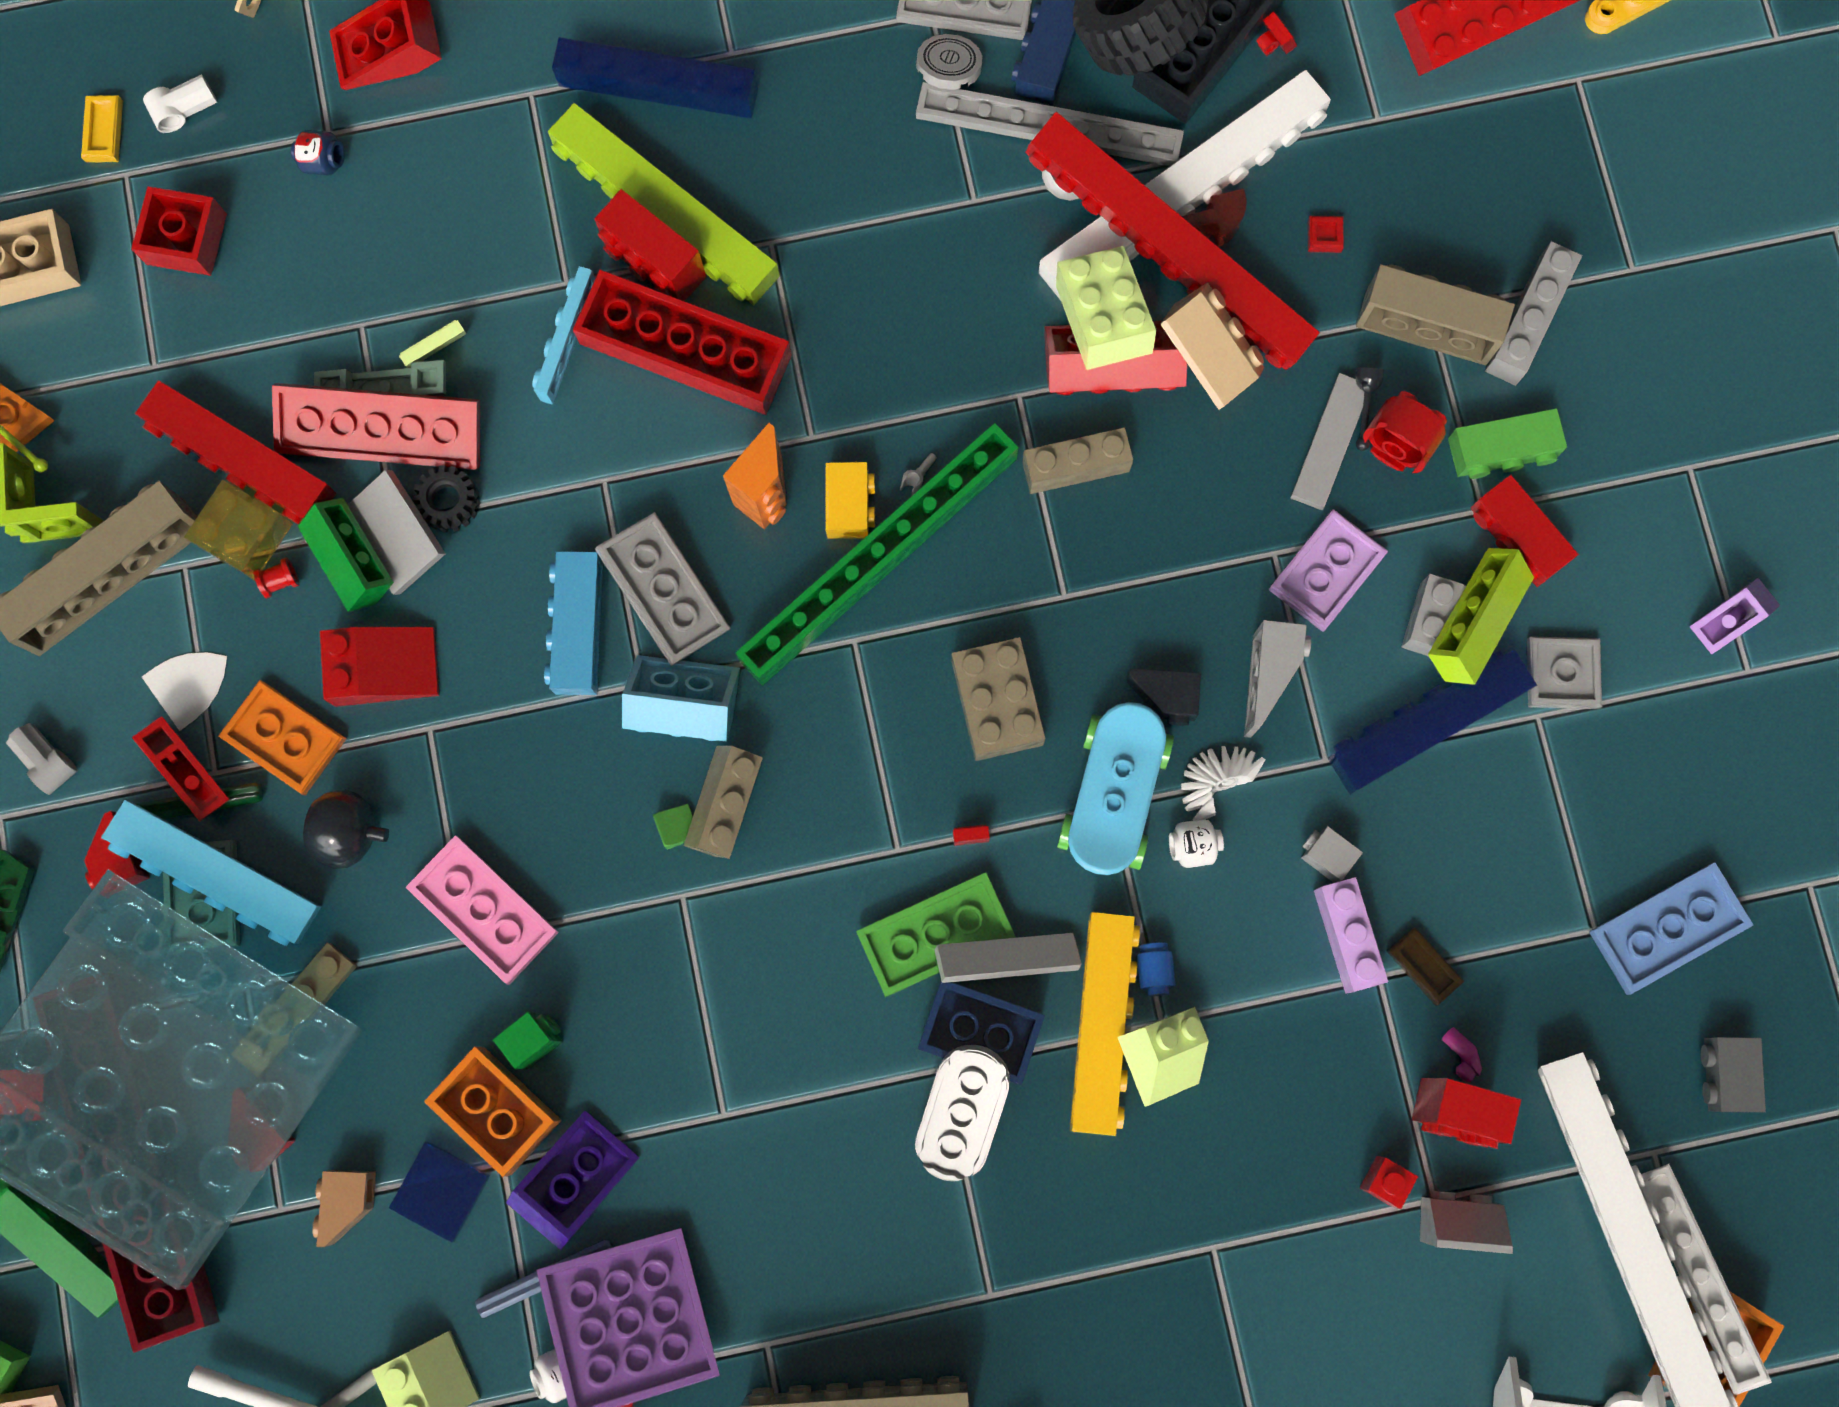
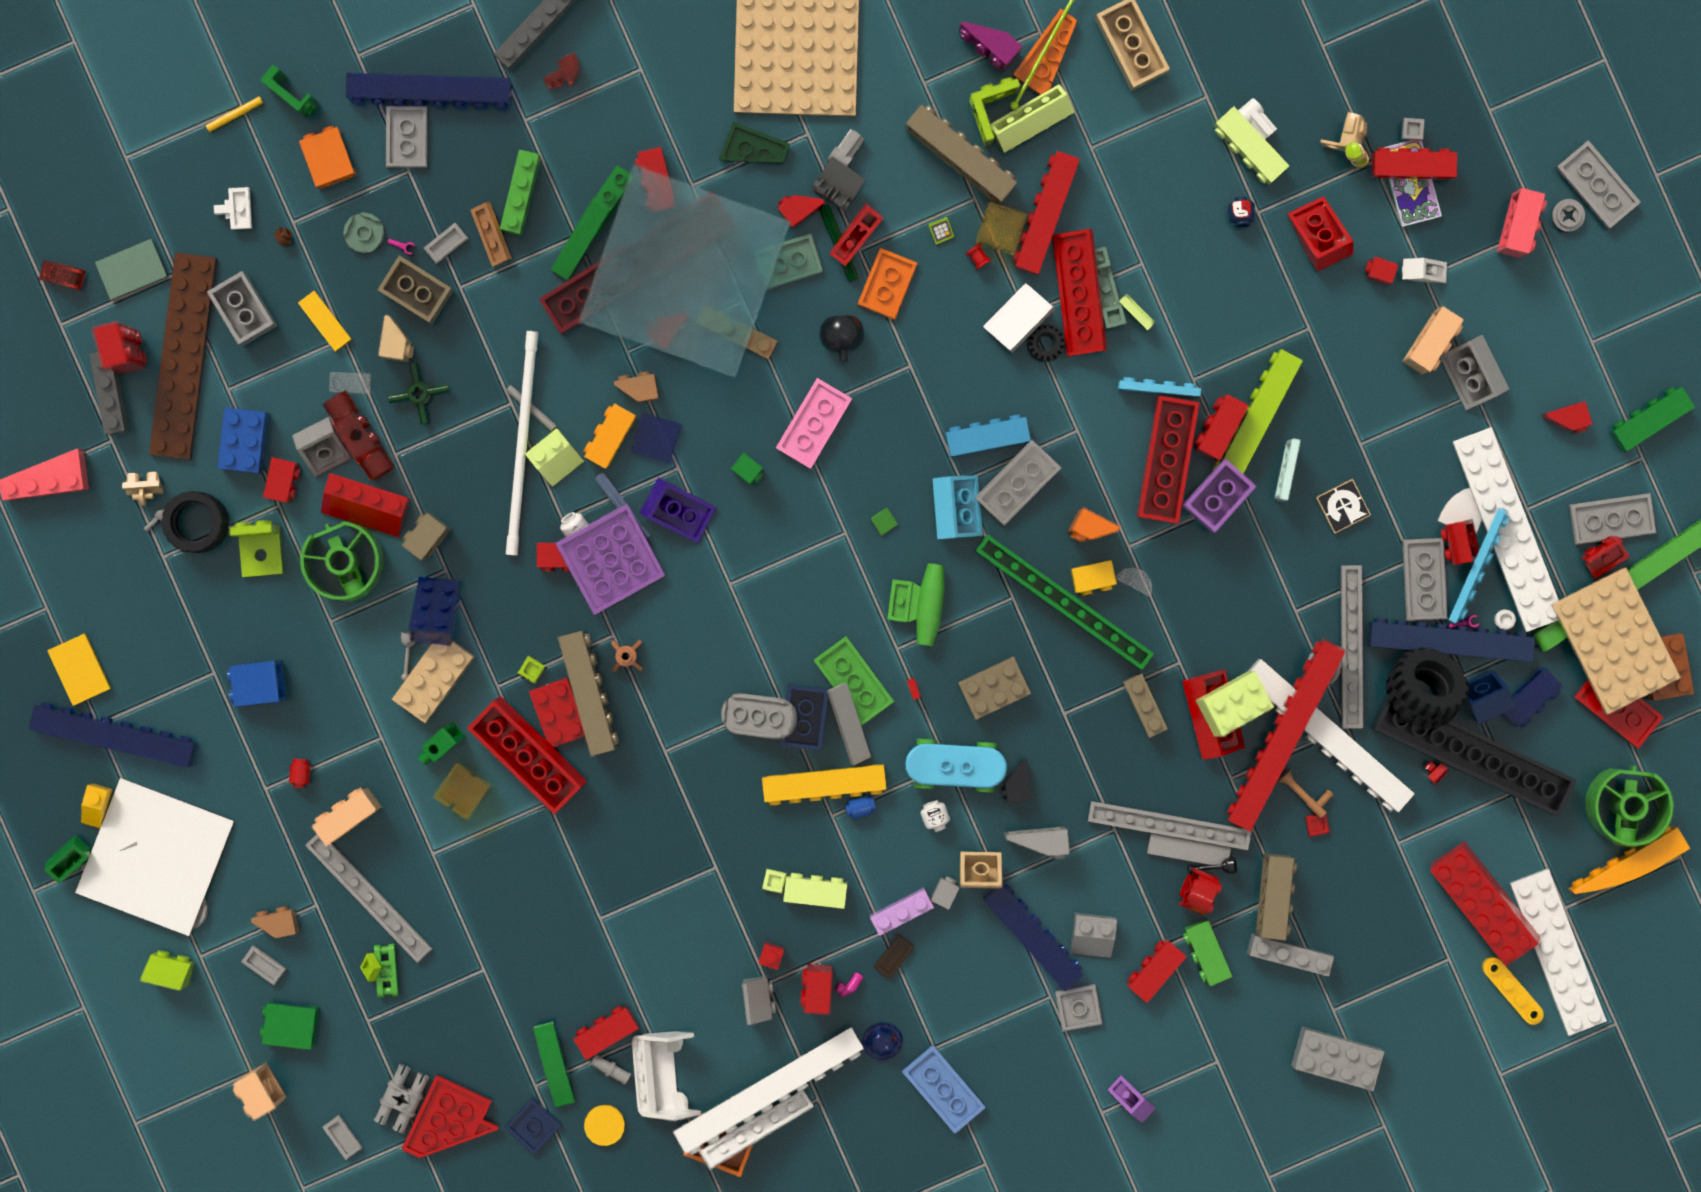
camera: 75 degrees right, 10 degrees up
(73, 442) = (1032, 118): none -> yellowish green brick
(90, 781) = (838, 183): none -> dark grey hinge
(102, 128) = (1232, 75): yellow tile -> none
(179, 231) = (1174, 144): red brick -> none
(187, 684) = (906, 220): white sticker -> none
(210, 872) = (801, 270): medium azure brick -> none
(217, 119) = (1251, 146): none -> yellowish green brick
(217, 630) = (941, 230): none -> slope
(345, 554) = (999, 294): green brick -> none
(378, 664) = (940, 330): red slope -> none
(413, 1274) = (609, 435): none -> light orange brick
(492, 1111) = (705, 458): orange brick -> none
(655, 77) = (1331, 404): clear blue brick -> none
(723, 801) = (902, 545): dark tan brick -> none
(743, 160) = (1287, 470): none -> light aqua tile
(757, 265) = (1218, 496): none -> medium lavender brick
(814, 1321) = (632, 653): none -> nougat brick
(822, 95) = (1343, 506): none -> tile
(828, 791) = (919, 603): none -> bright green plate
(869, 434) = (1136, 579): none -> clear tile
(915, 477) = (1116, 613): light grey hand -> none
(949, 61) = (1379, 578): light grey tile -> none
(1166, 1055) = (813, 821): yellowish green slope -> none
(1213, 344) = (1226, 770): tan slope -> none
(1217, 776) = (976, 820): white hair -> none
(1222, 216) = (1312, 762): clear red brick -> none
(1256, 1148) = (774, 881): none -> yellowish green tile
(1283, 464) = (1169, 825): none -> light grey plate
(1288, 1079) = (815, 890): none -> yellowish green brick
(1295, 227) = (1315, 806): none -> medium nougat piece
(1305, 783) = (980, 869): none -> tan slope
(1328, 570) = (1110, 862): lavender tile -> none
(1481, 615) = (1098, 953): lime brick -> none
(1569, 1018) = (882, 1041): none -> clear blue hat
(1717, 273) = (1337, 1058): none -> light grey brick
(1733, 1074) = (869, 1134): dark grey brick -> none

